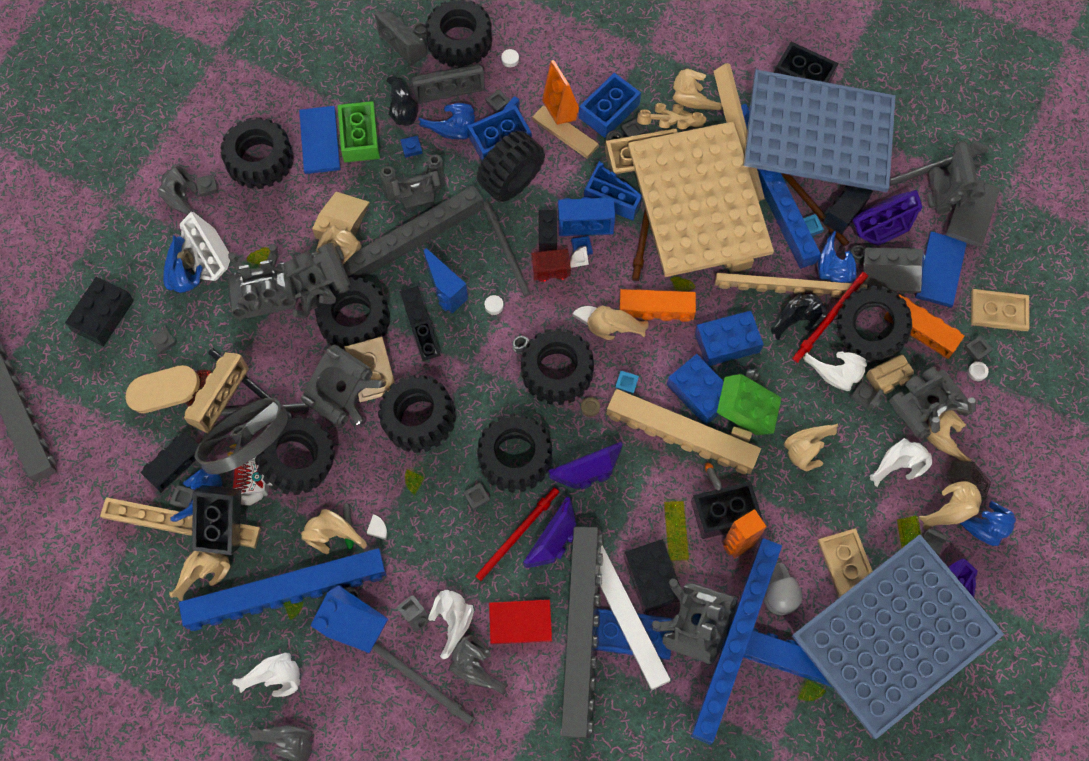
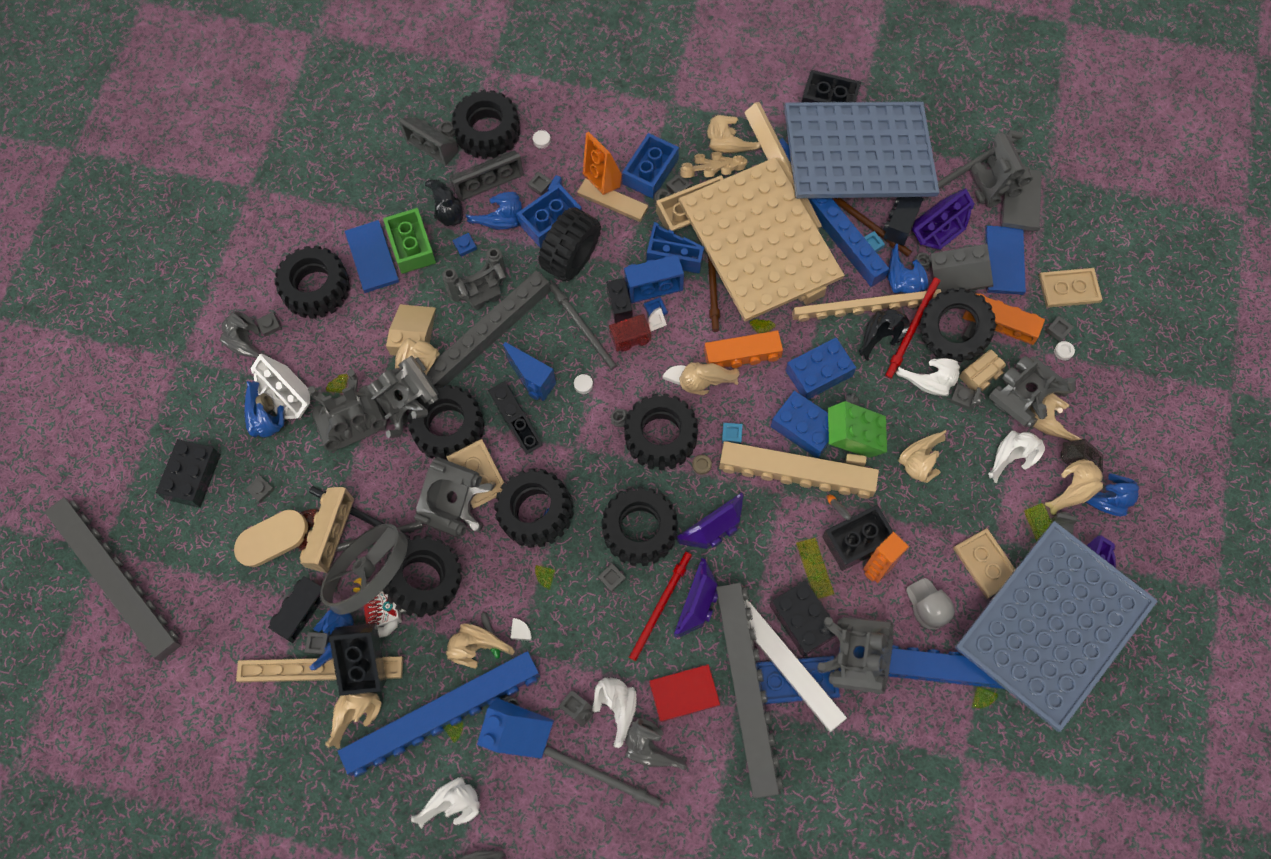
camera: 10 degrees left, 0 degrees up
(736, 642) = (902, 667): blue brick -> none

